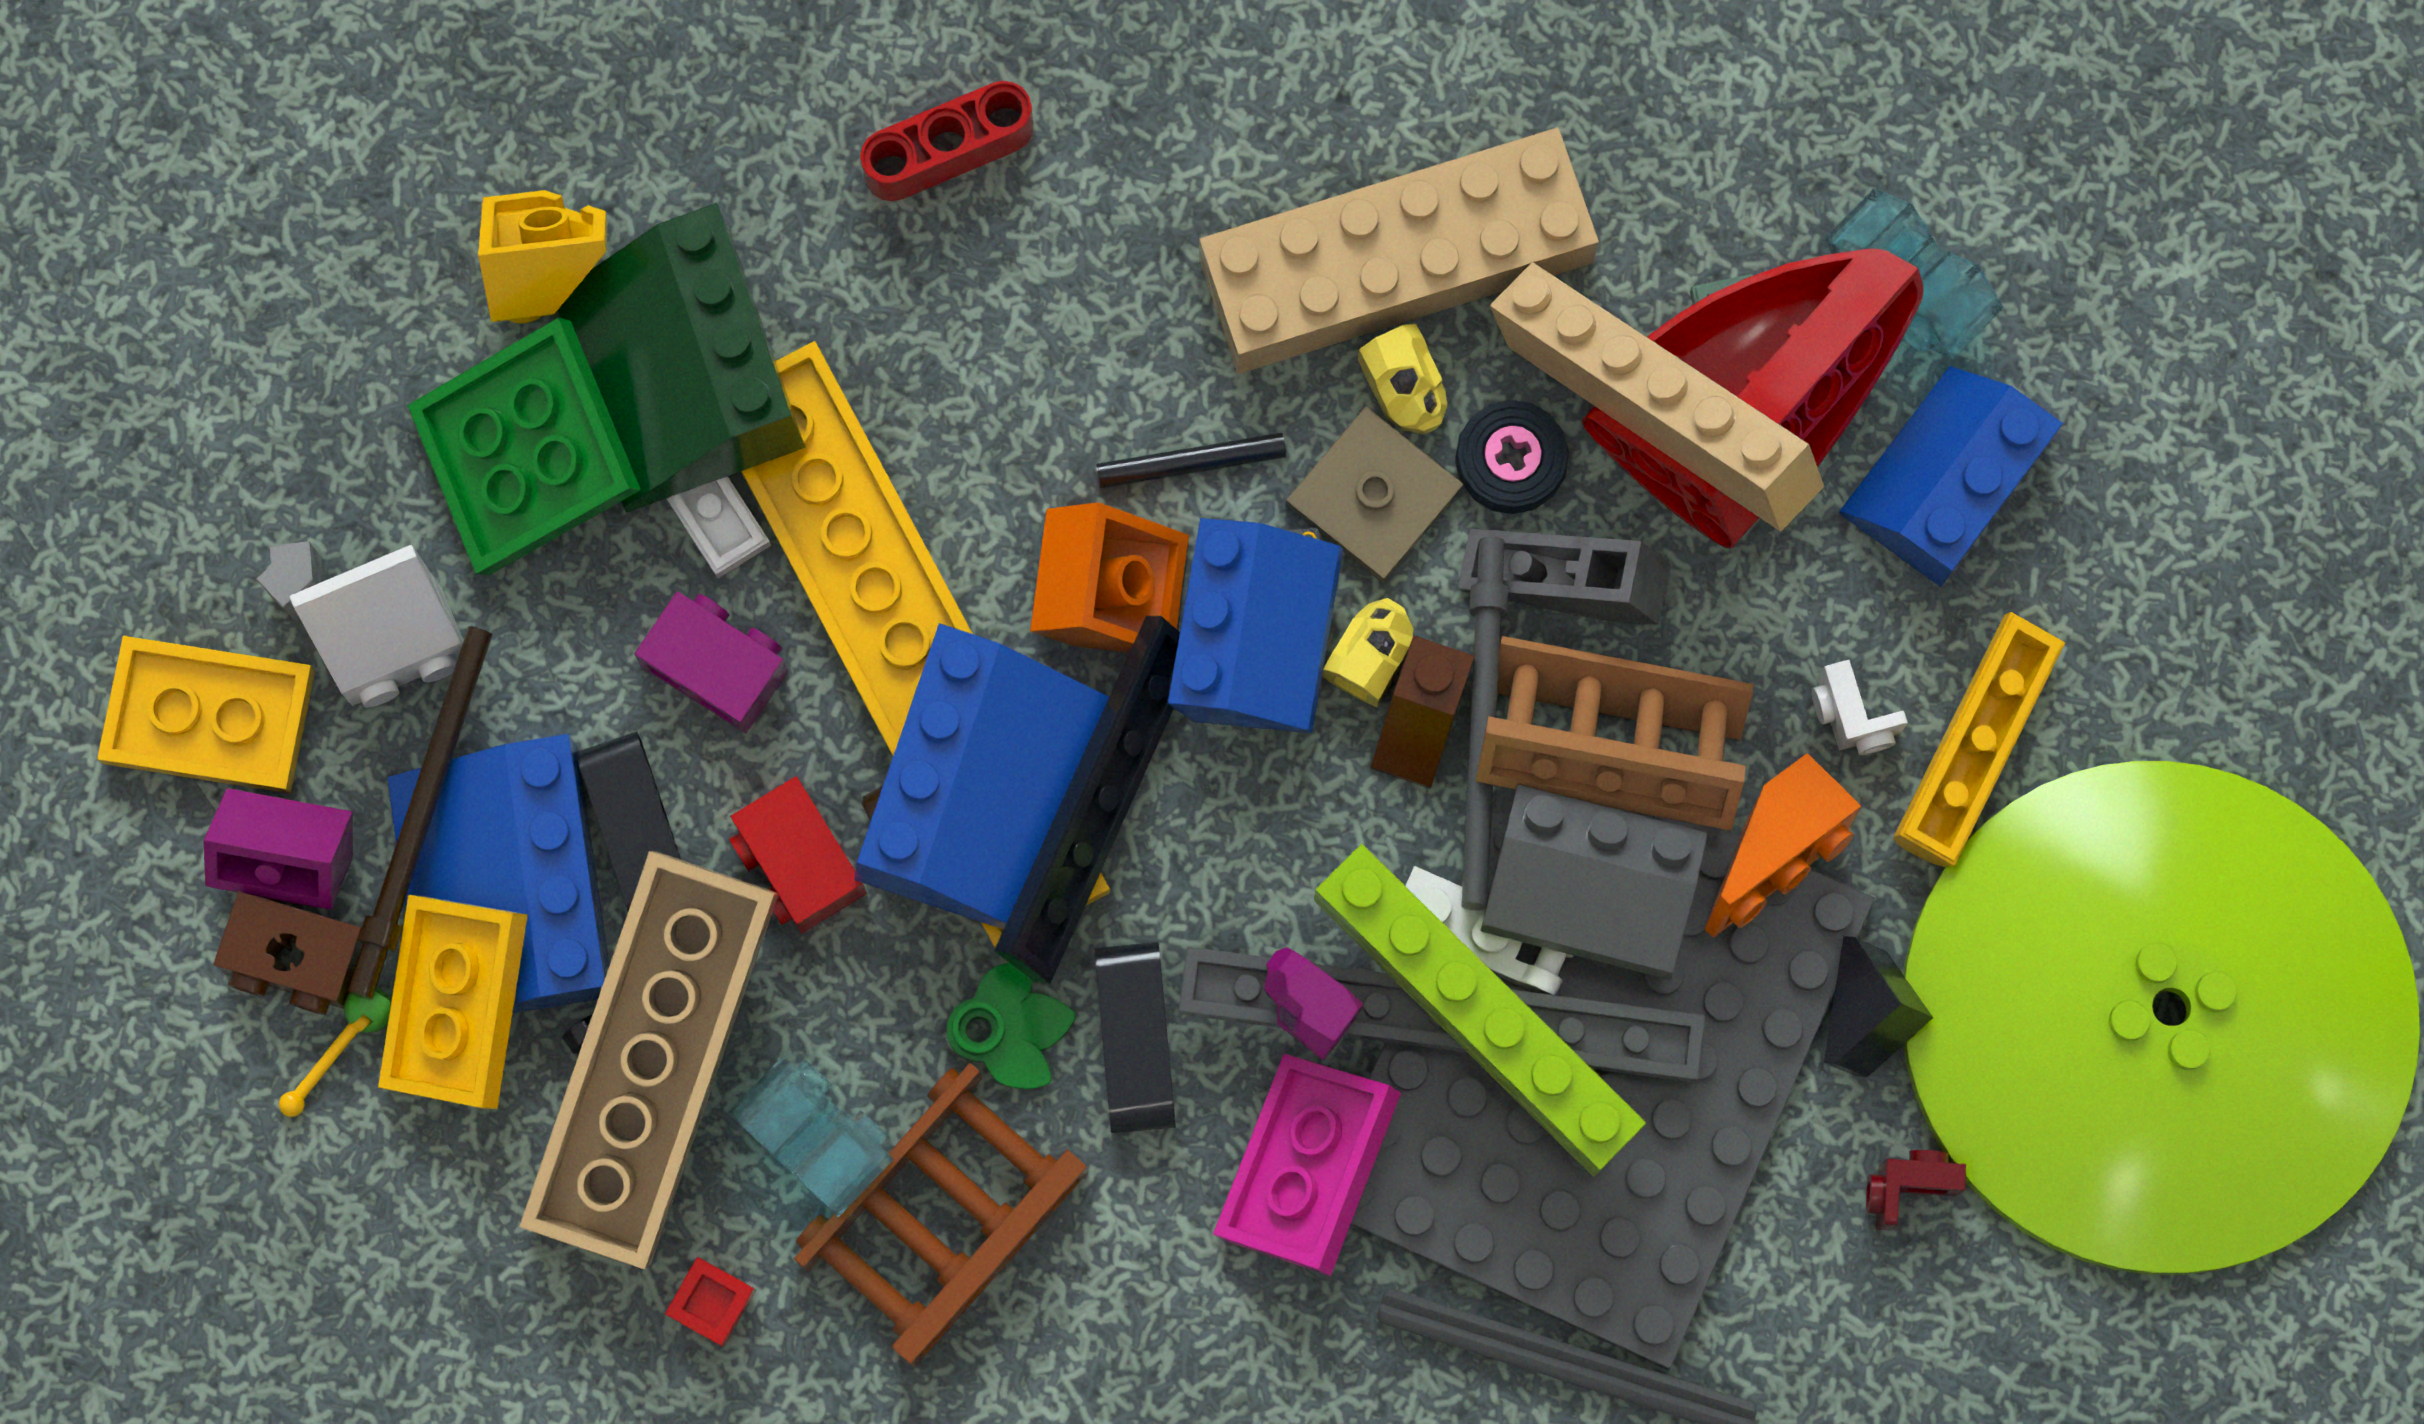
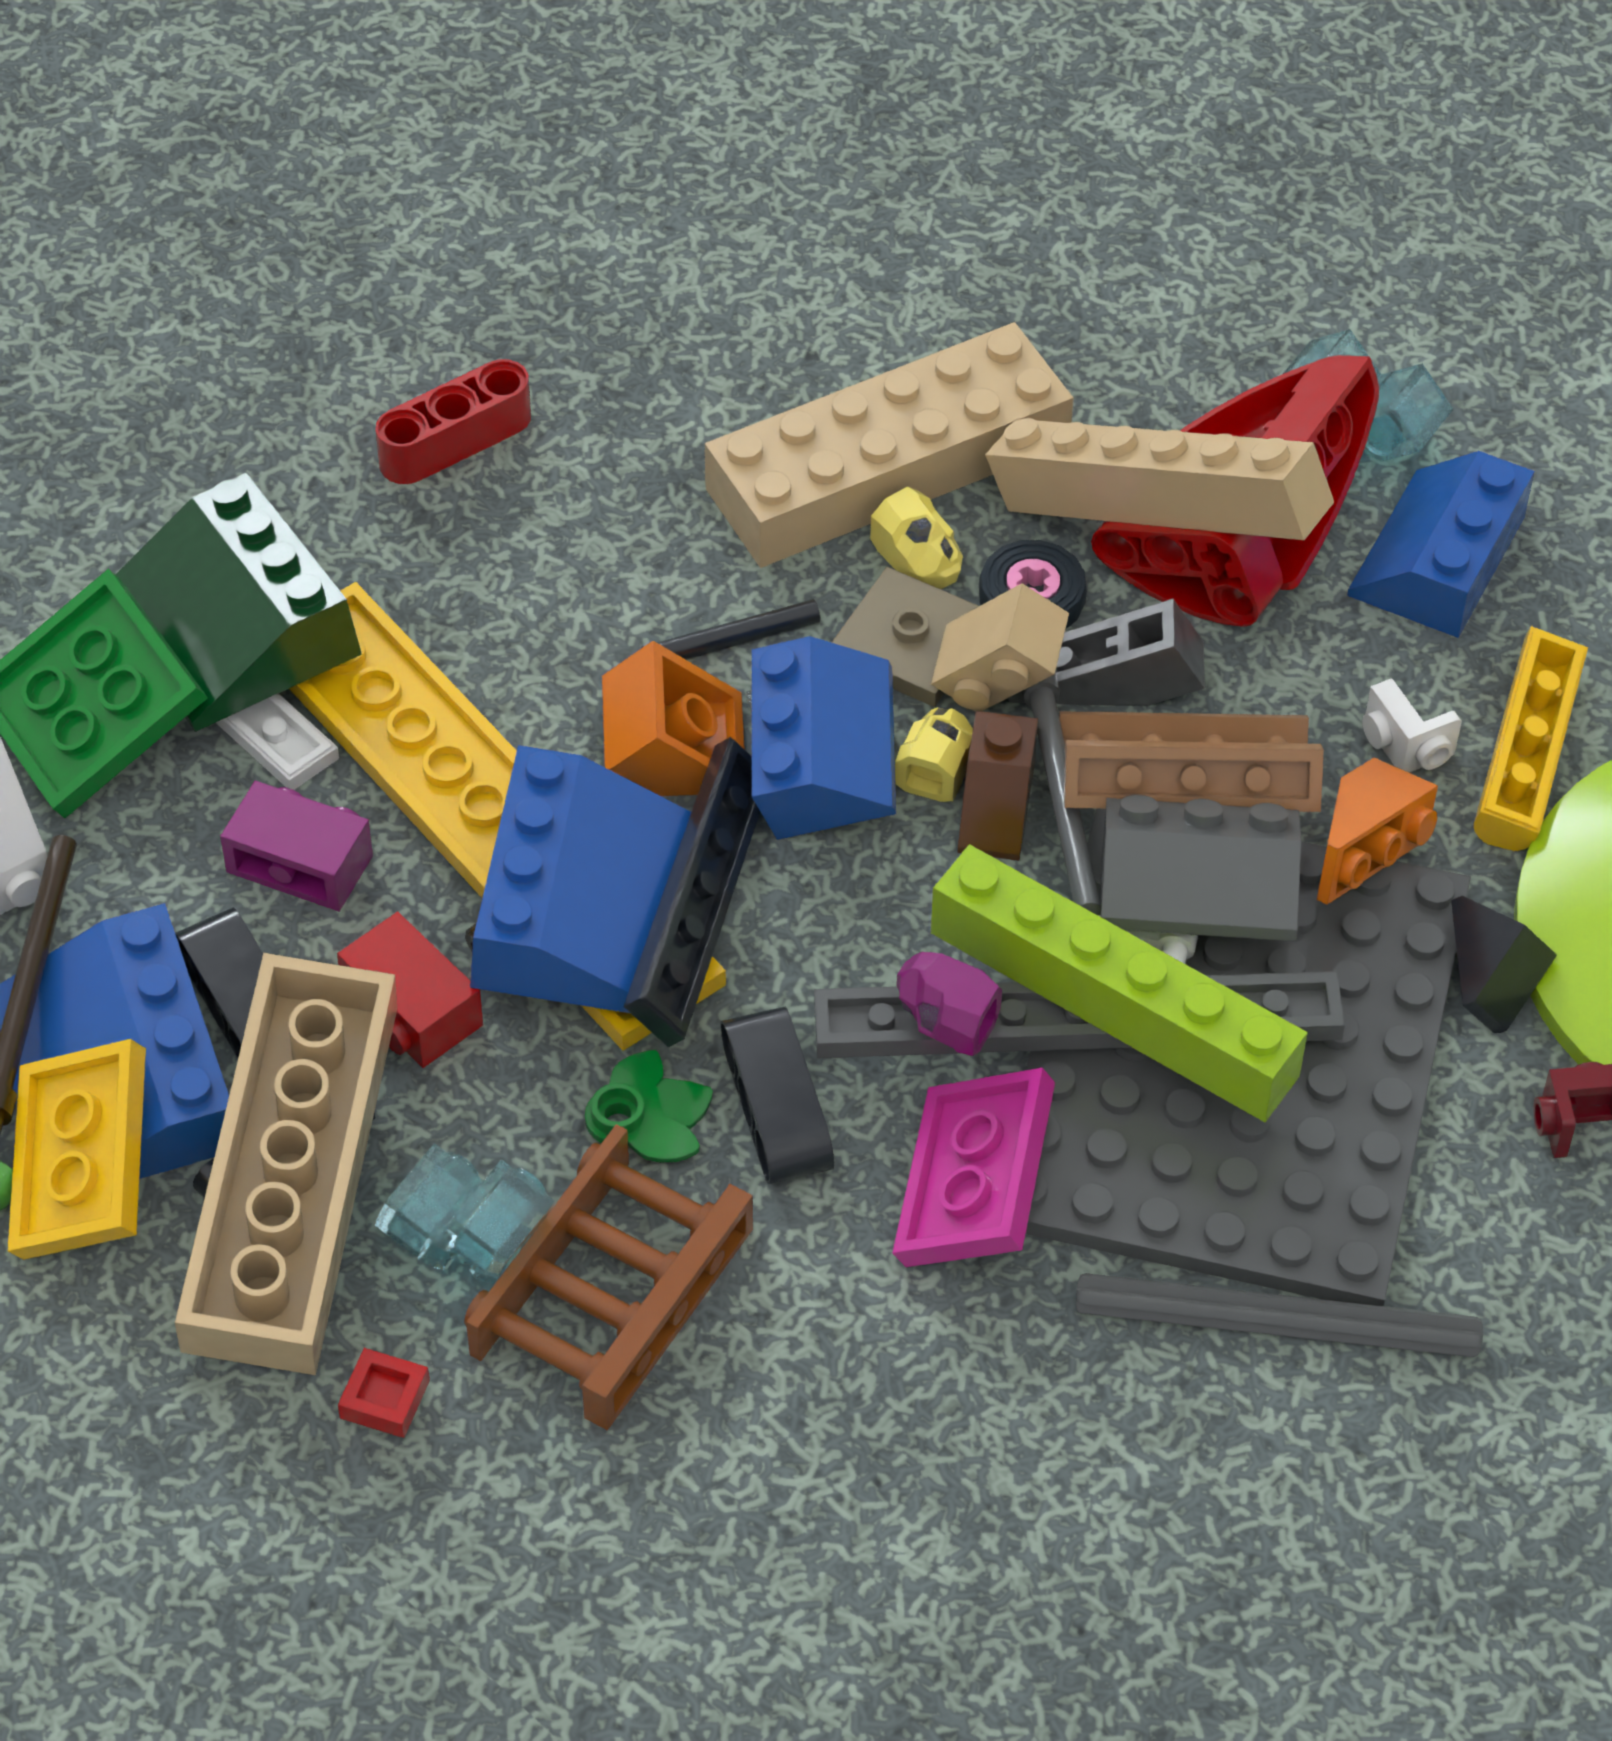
camera: 10 degrees left, 25 degrees down
(536, 252) = (78, 550): yellow slope -> none
(1453, 561) = (1000, 648): none -> tan brick

